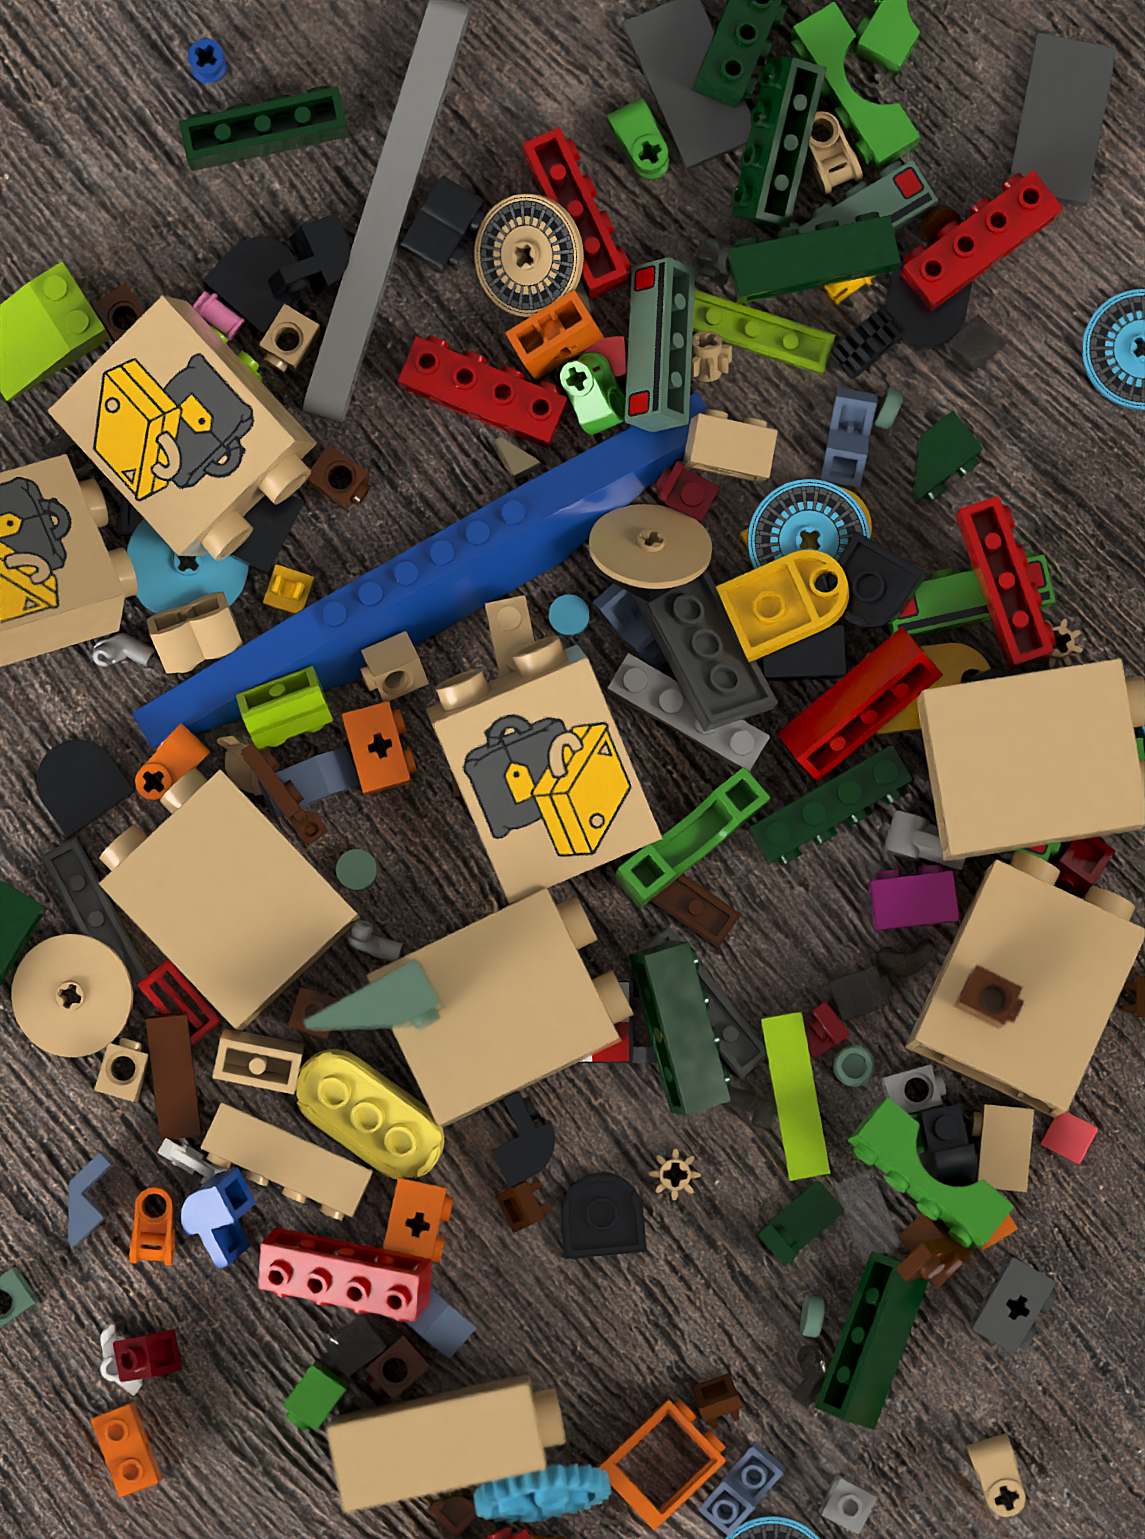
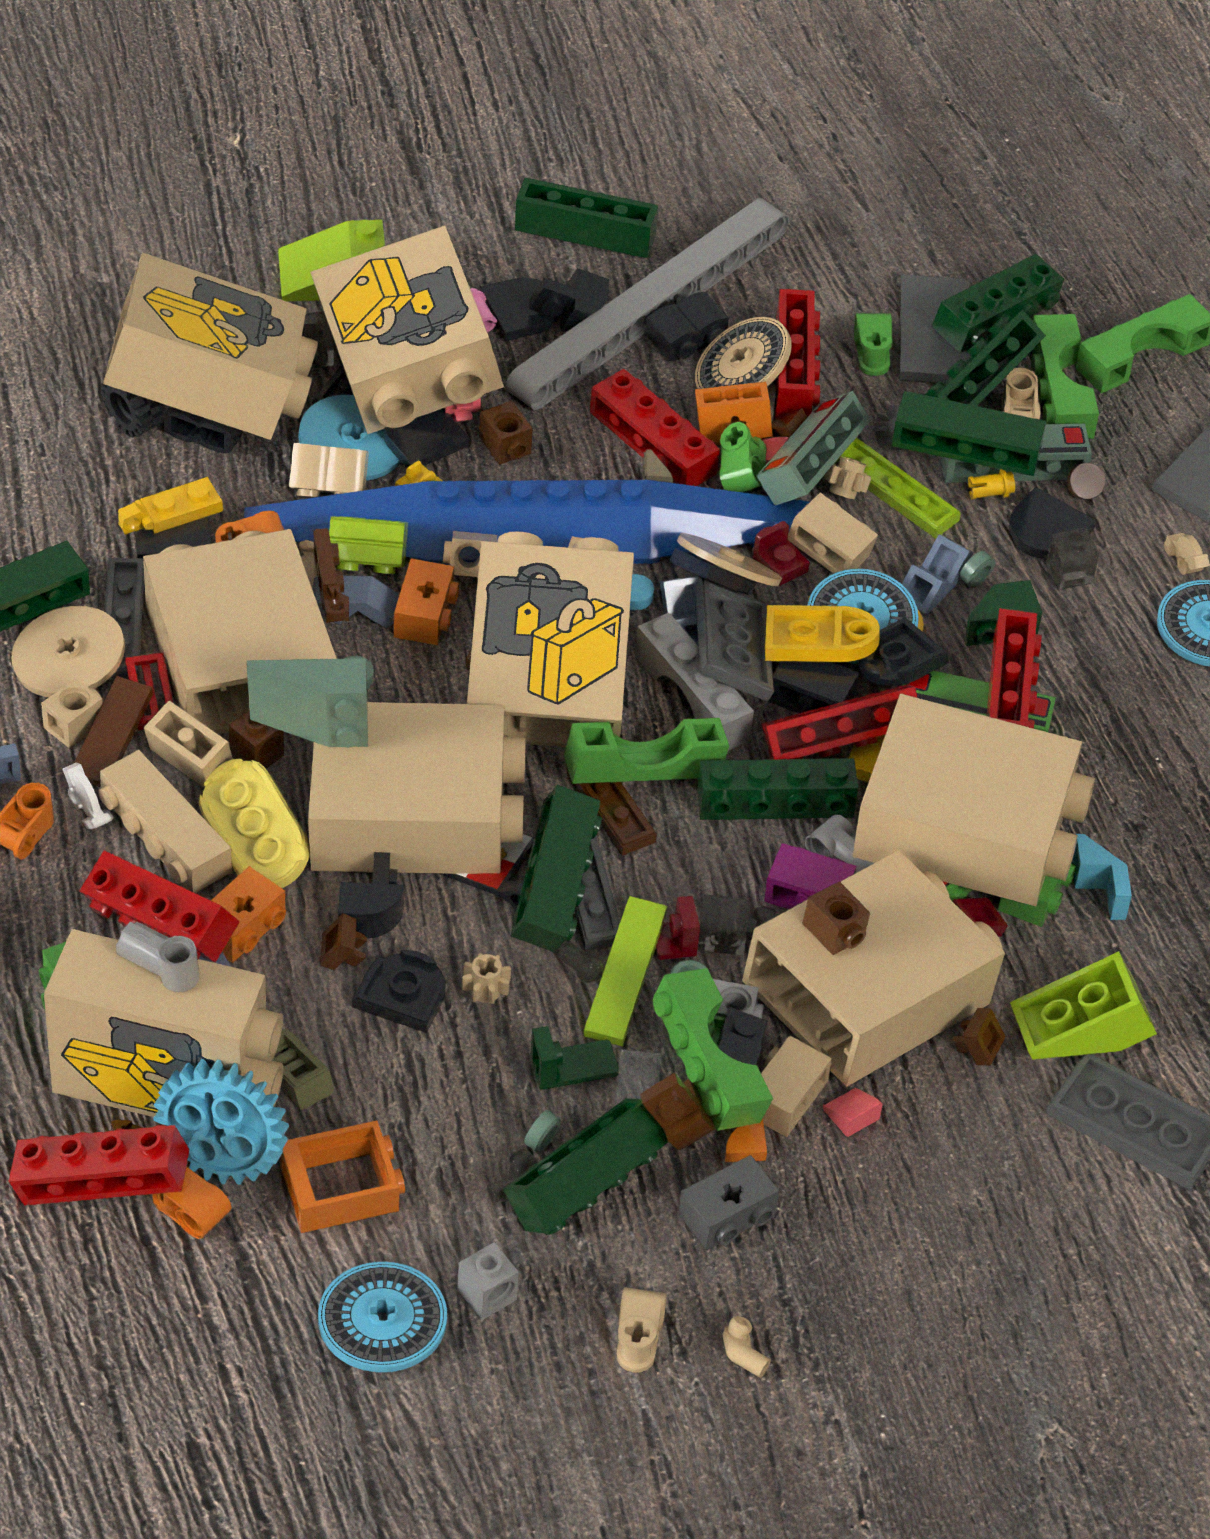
camera: 25 degrees right, 35 degrees down
(68, 763) = (171, 507): none -> yellow hinge
(120, 647) = (263, 464): light grey arm -> none
(206, 48) = (569, 168): blue bush -> none
(215, 1213) = (80, 820): blue brick -> none
(292, 322) = (522, 339): tan brick -> none
(424, 1427) = (168, 957): none -> light grey piece
(584, 1375) = (309, 1086): none -> olive slope
(612, 312) = (788, 423): none -> reddish brown tile
(717, 1398) = (419, 1153): reddish brown tile -> none
(742, 1488) = (401, 1236): sand blue slope -> none
(867, 343) = (998, 515): black tyre -> none
(980, 240) = (1113, 493): red brick -> none
(1085, 276) = (1188, 553): none -> tan piece
(1091, 1446) = (739, 1348): none -> tan arm

